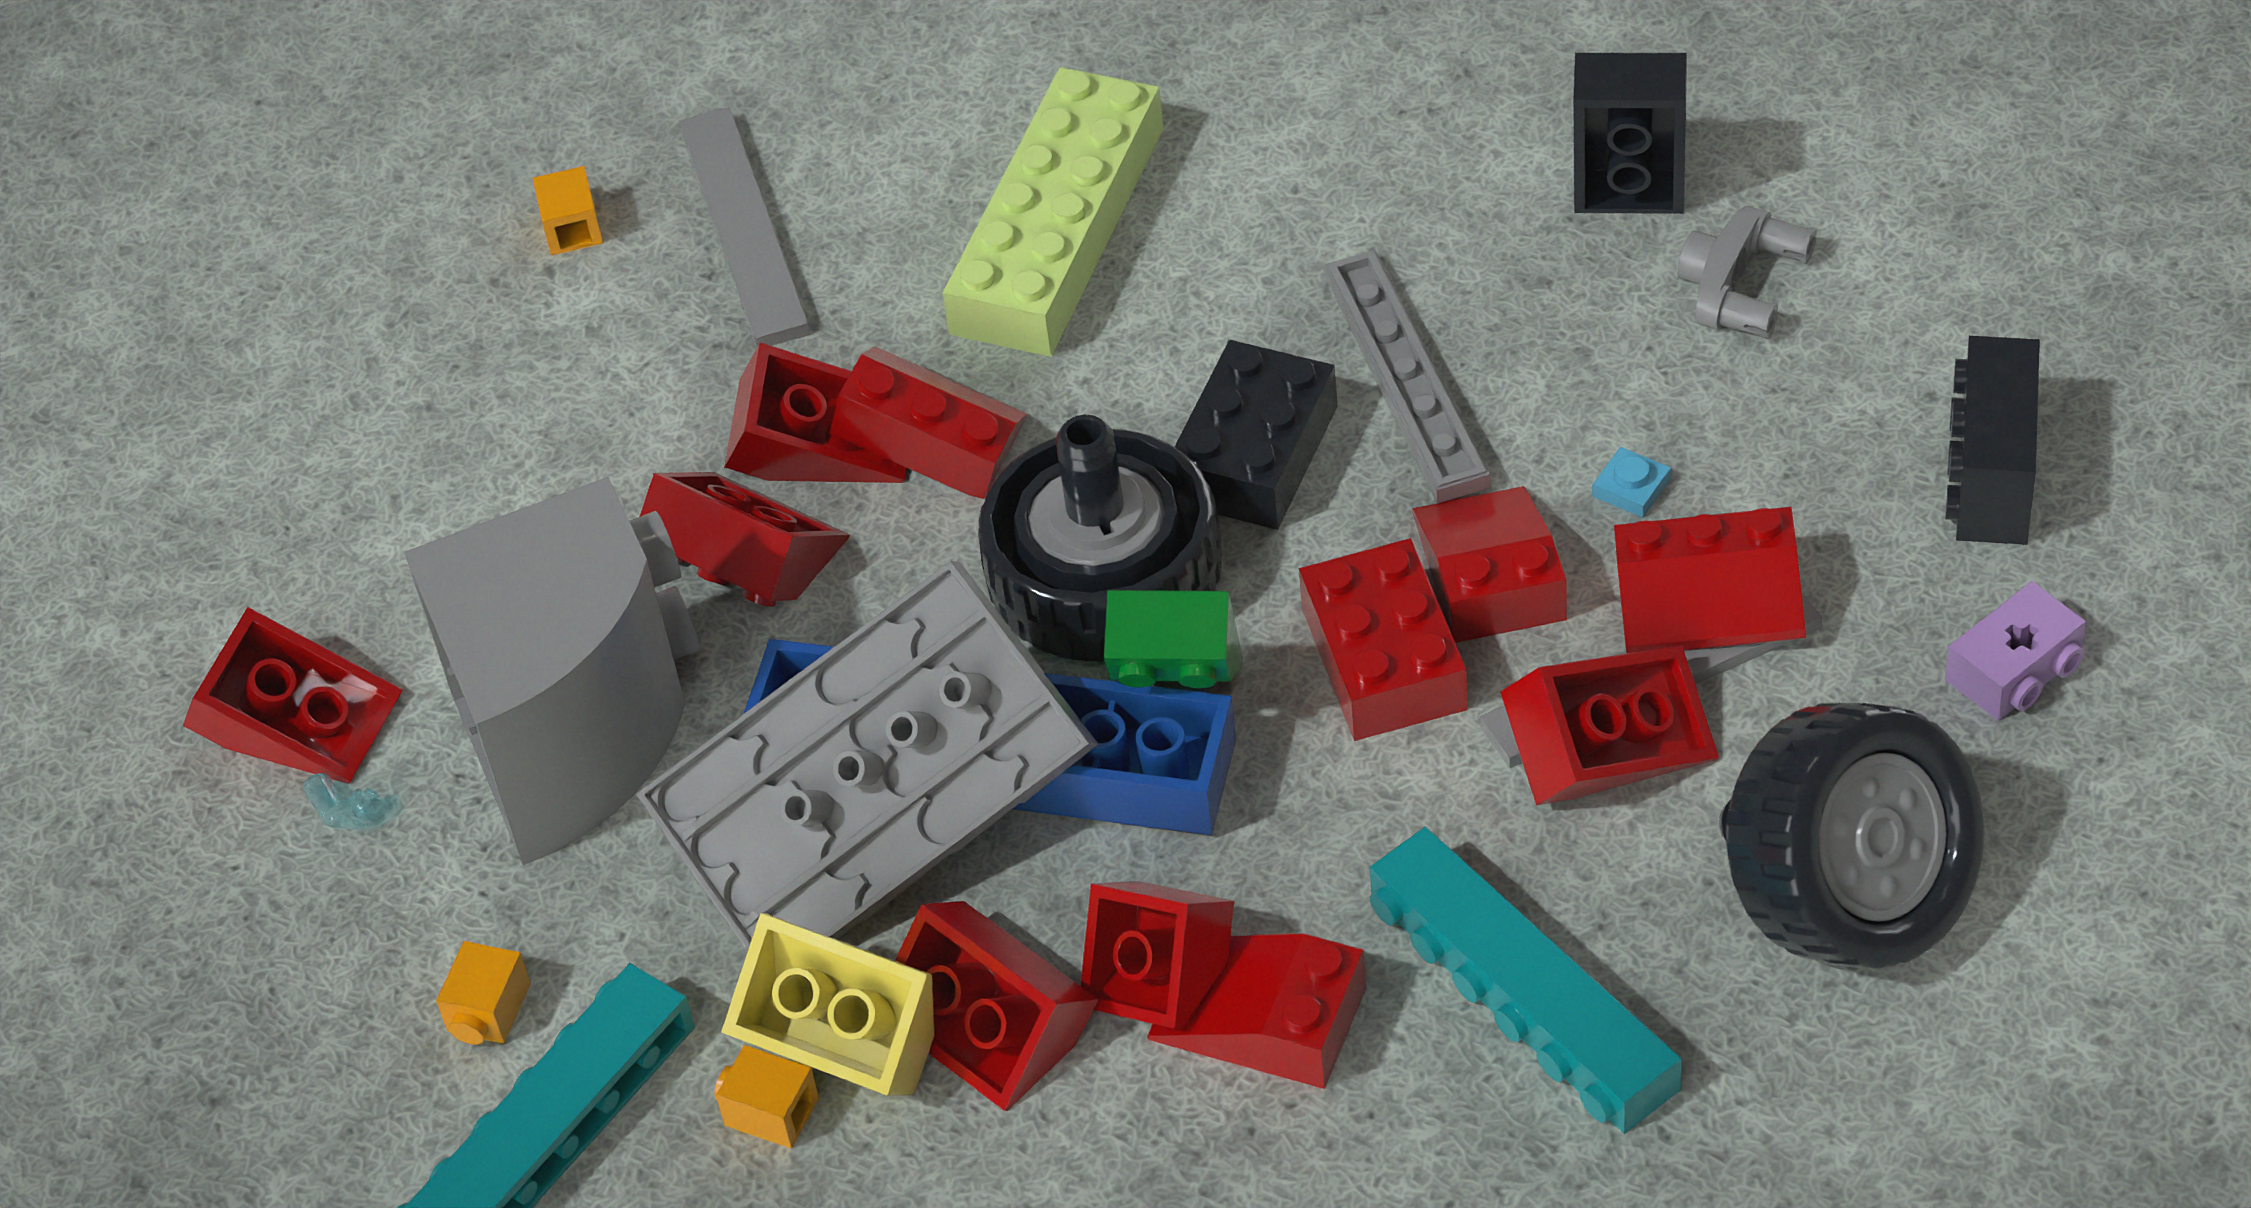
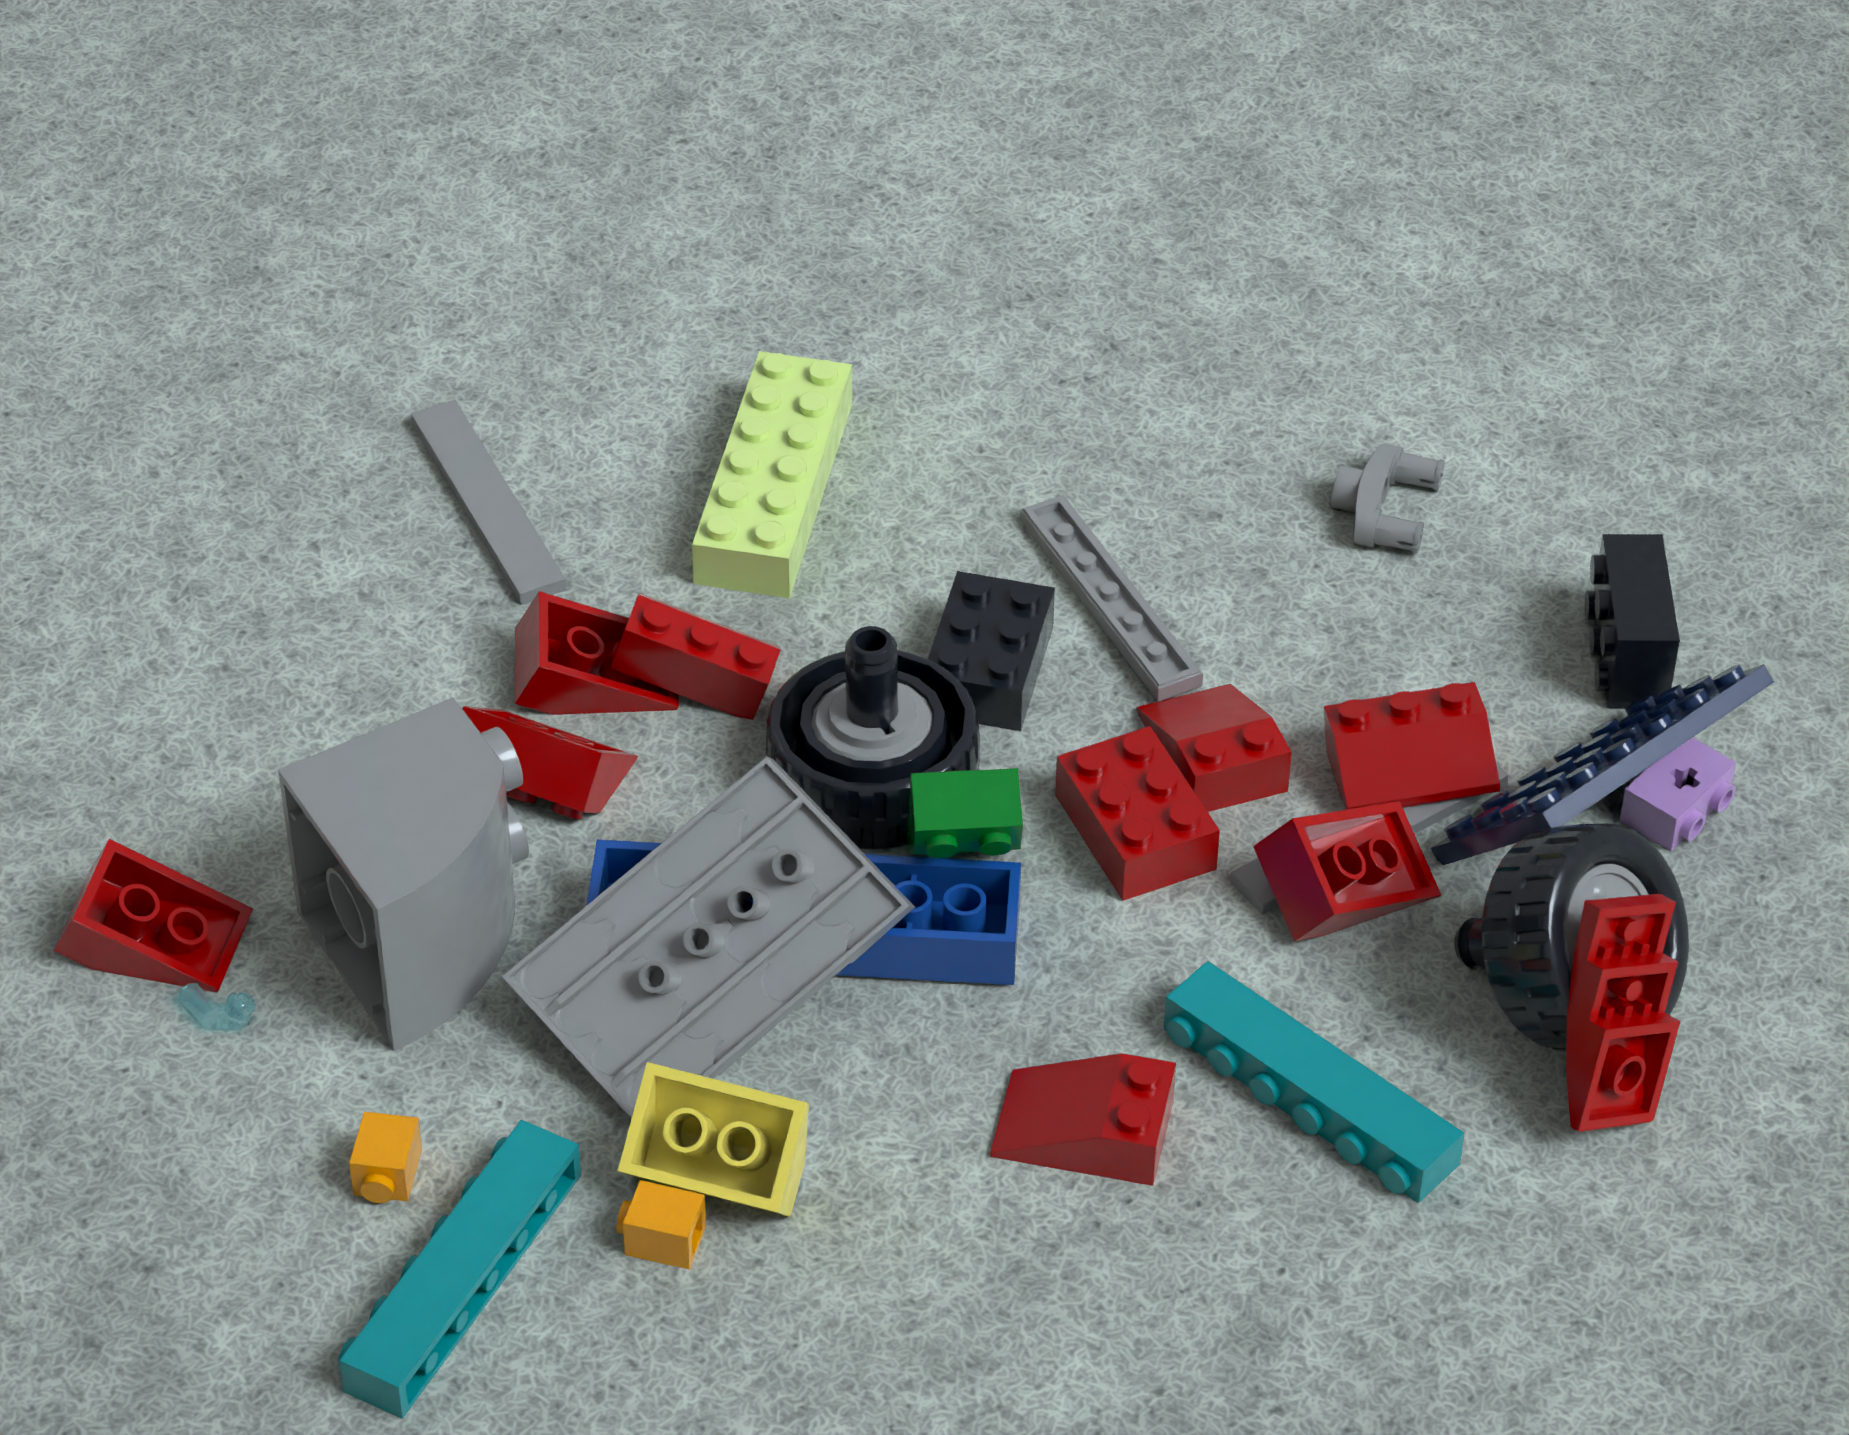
camera: 15 degrees left, 5 degrees down
(567, 210) = (324, 493): light orange brick -> none
(996, 1003) = (860, 1137): red slope -> none
(1153, 950) = (987, 1079): red slope -> none
(1629, 132) = (1277, 384): black brick -> none
(1631, 482) = (1323, 675): medium azure plate -> none
(1876, 930) = (1617, 1012): none -> red slope
(1918, 617) = (1602, 765): none -> dark blue plate

